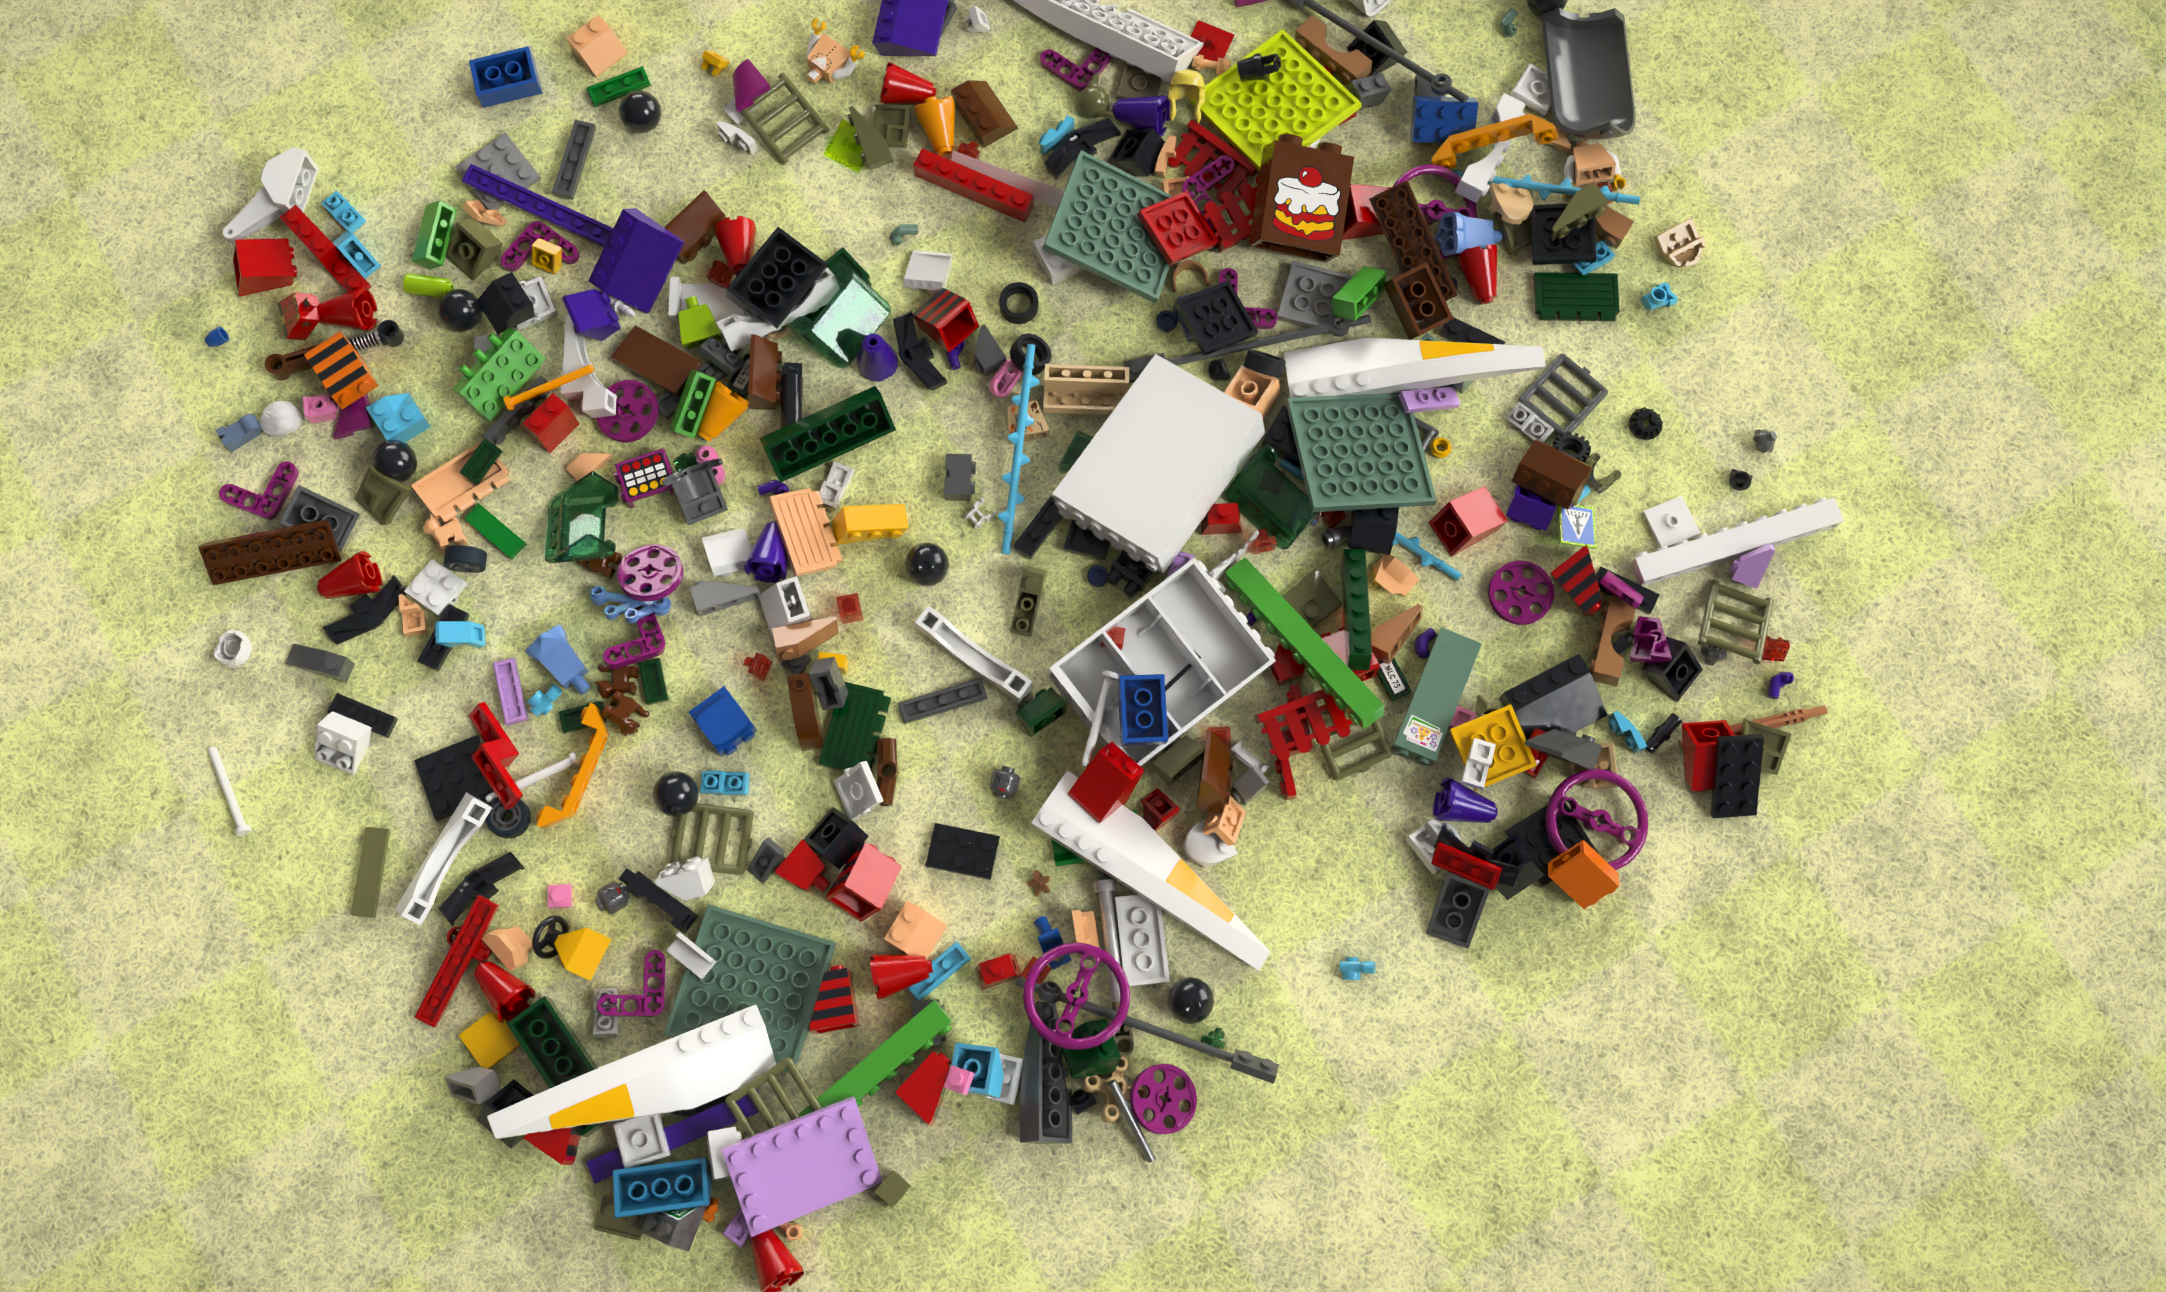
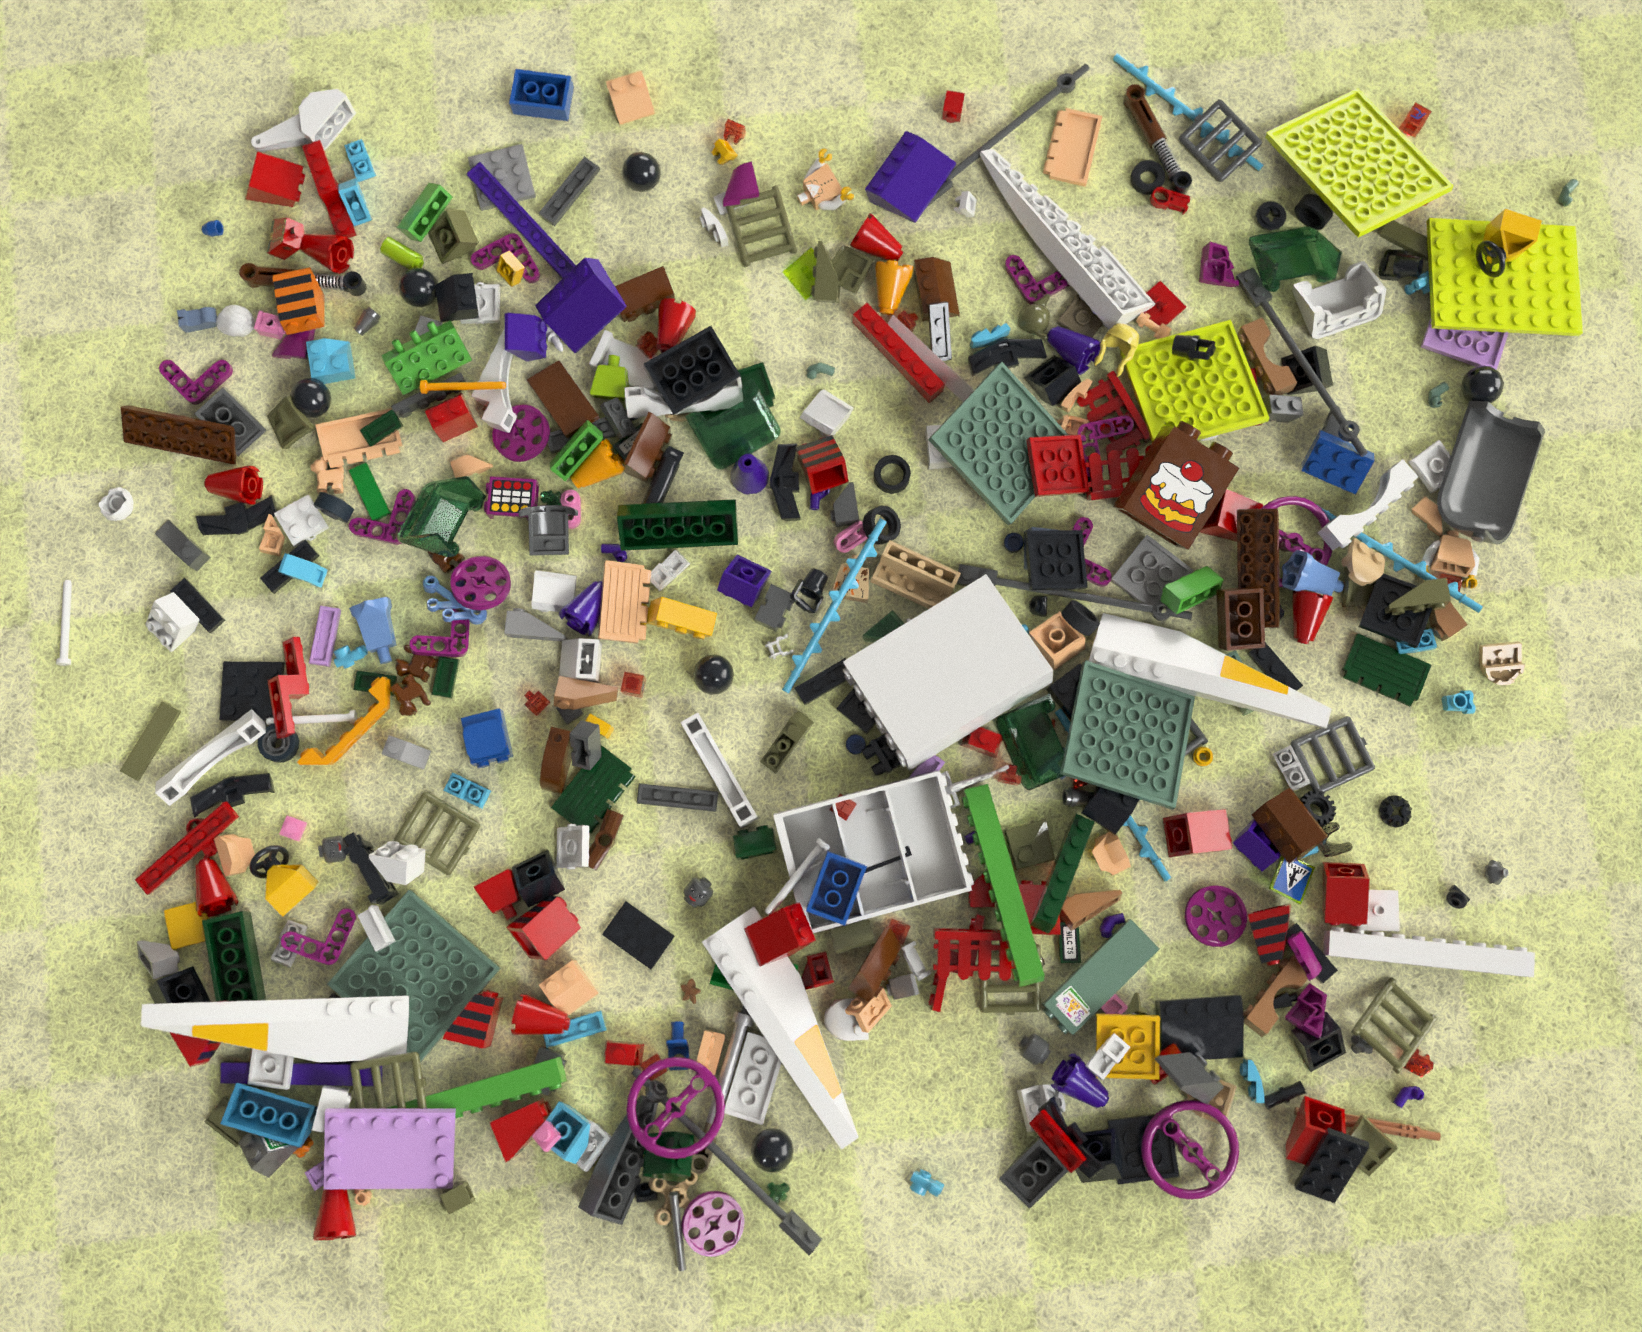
camera: 25 degrees right, 5 degrees up
(419, 365) = (367, 320): none -> flat silver cone
(480, 213) = (471, 207): light nougat slope -> none
(530, 559) = (387, 529): none -> magenta beam
(618, 86) = (634, 140): green tile -> none
(643, 770) = (406, 752): none -> light grey slope
(675, 794) = (420, 784): black piece -> none
(716, 36) = (735, 129): none -> clear red tile
(766, 860) = (472, 873): dark grey slope -> none
(916, 463) = (743, 580): none -> dark purple slope
(987, 443) = (811, 587): none -> black piece
(1005, 146) = (940, 330): none -> plate
(1190, 265) = (1053, 500): medium nougat helmet -> none
(1404, 792) = (1034, 1049): none -> dark grey head
(1429, 399) = (1211, 710): lavender plate -> none
(1493, 133) = (1420, 513): light orange slope -> none
(1583, 874) = (1156, 1193): orange brick -> none
(1634, 518) = (1345, 893): none -> red slope
(1752, 565) = (1432, 981): lavender slope -> none

